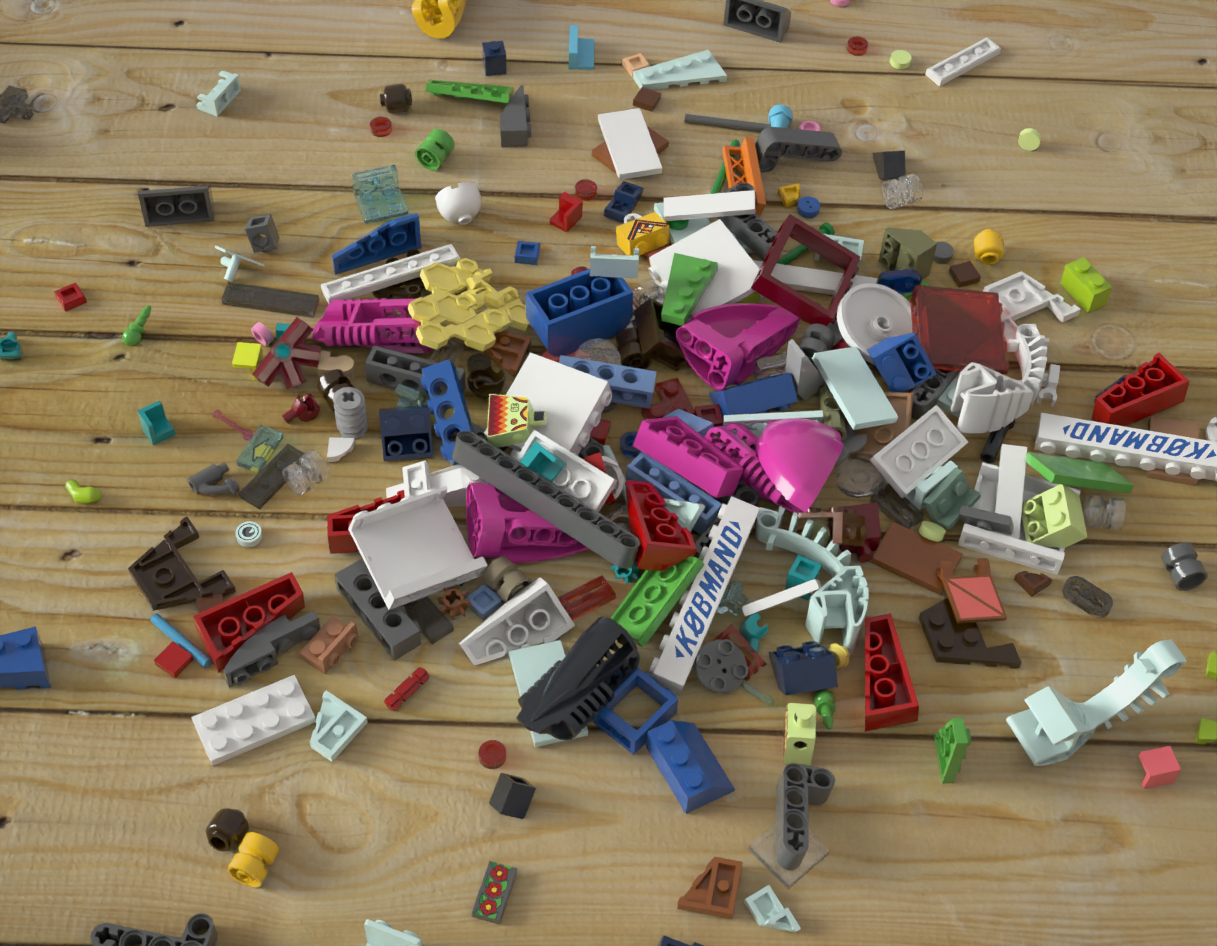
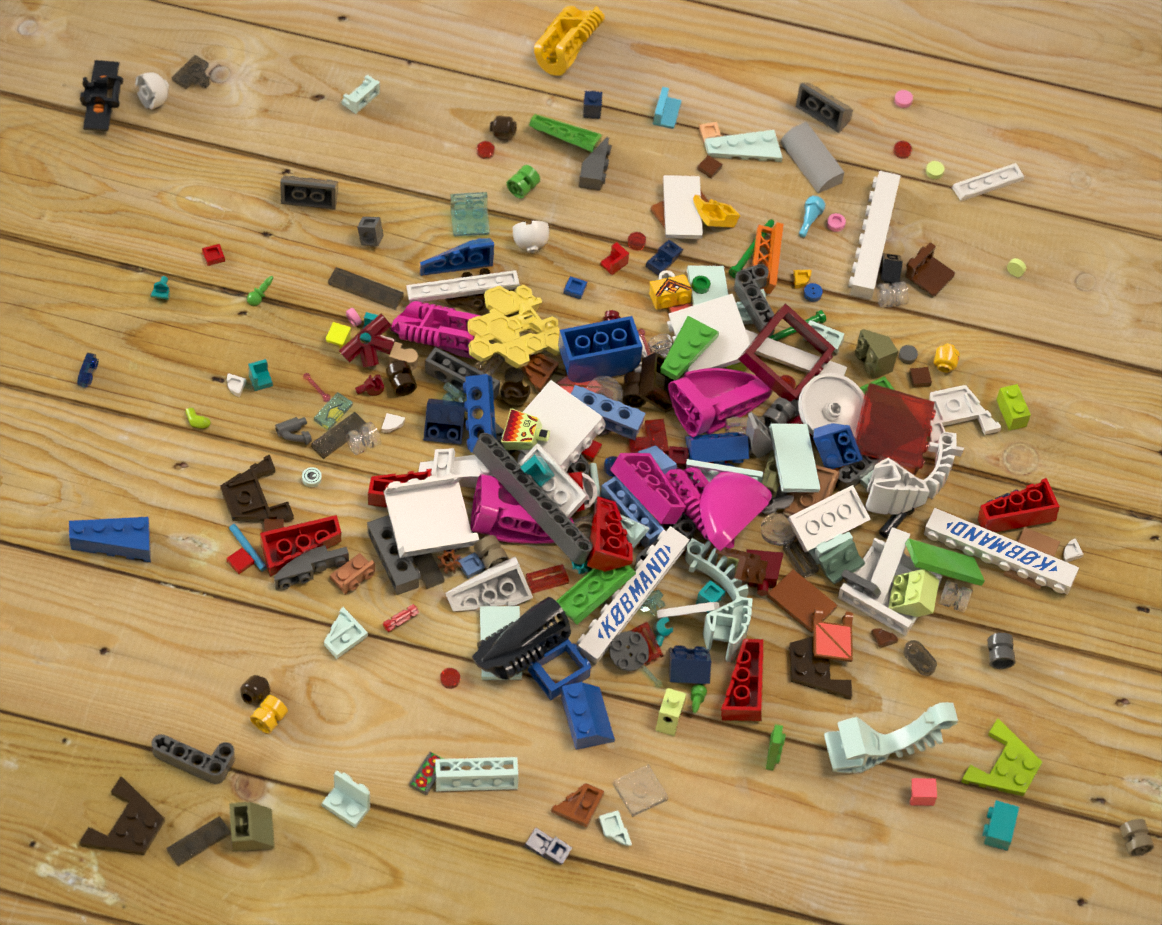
camera: 10 degrees right, 5 degrees up
(126, 441) = (236, 384): none -> white tile
(233, 263) = (343, 247): light aqua shield -> none
(253, 720) = (288, 616): white plate -> none
(350, 412) = (406, 398): light grey piece -> none
(512, 796) = (456, 710): black panel -> none
(564, 882) = (476, 778): none -> light aqua fence
(614, 265) = (633, 320): light aqua hinge -> none
(670, 142) = (716, 213): none -> yellow slope
(709, 205) = (727, 280): white tile -> none
(727, 123) = (770, 202): dark grey bar -> none
(761, 69) = (812, 157): none -> light grey brick
(795, 790) = (658, 747): dark grey beam -> none
(796, 144) = (817, 235): dark grey beam -> none
(841, 655) = (718, 661): light yellow plate -> none
(858, 135) = (875, 234): none -> white brick
(901, 280) = (862, 374): clear blue plate -> none
(932, 531) = (820, 582): yellowish green tile -> none
(933, 162) = (928, 271): none -> reddish brown bracket
(1050, 383) = (953, 482): white plate -> none

